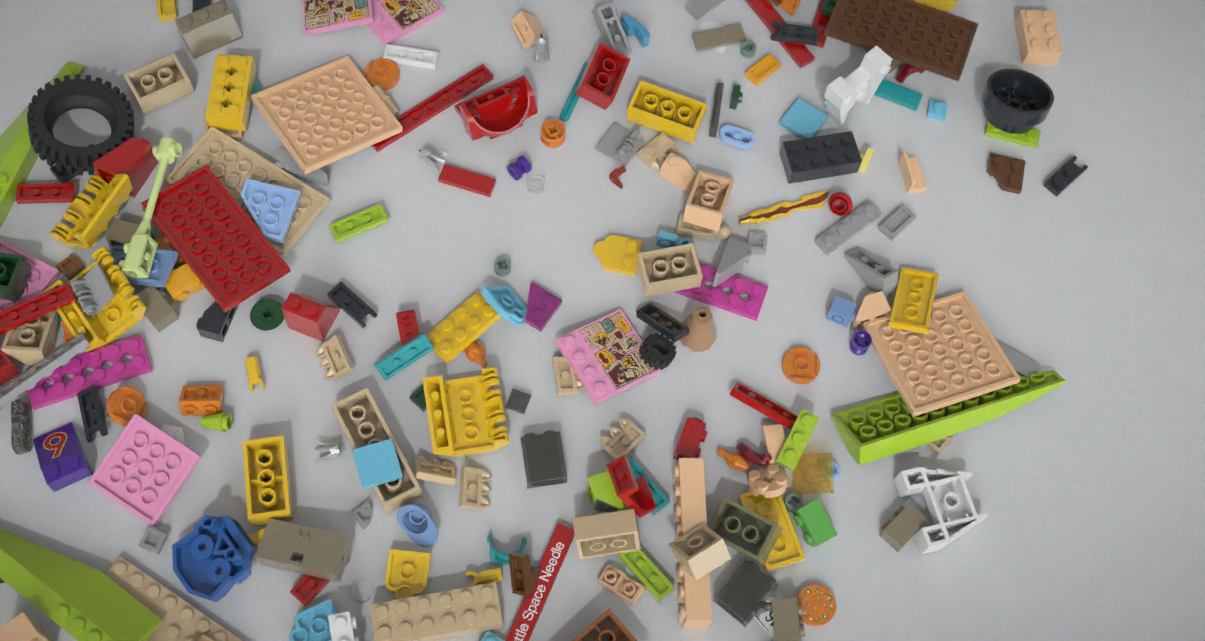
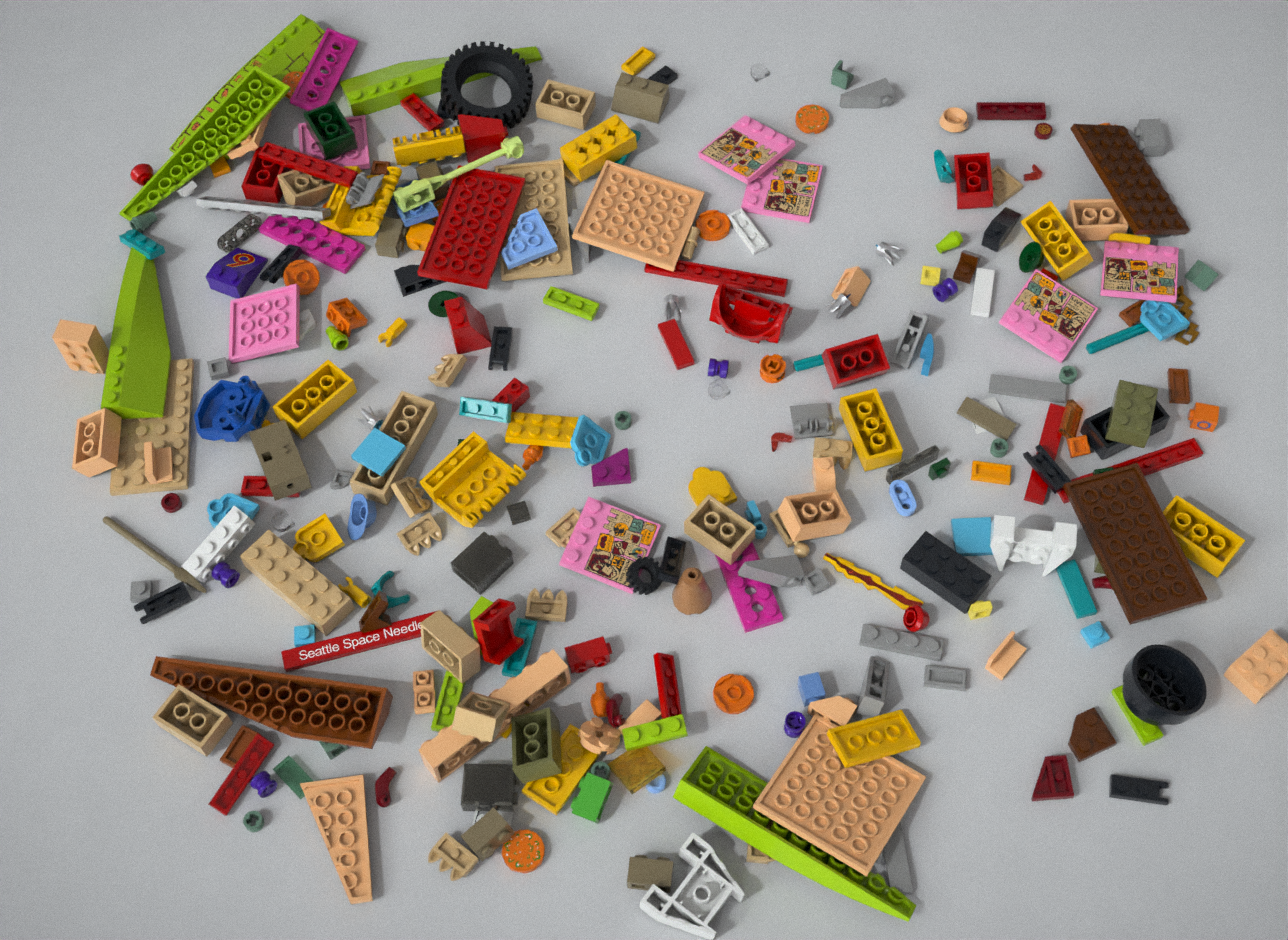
camera: 60 degrees right, 5 degrees down
(1023, 217) = (1053, 780): none -> dark red wing

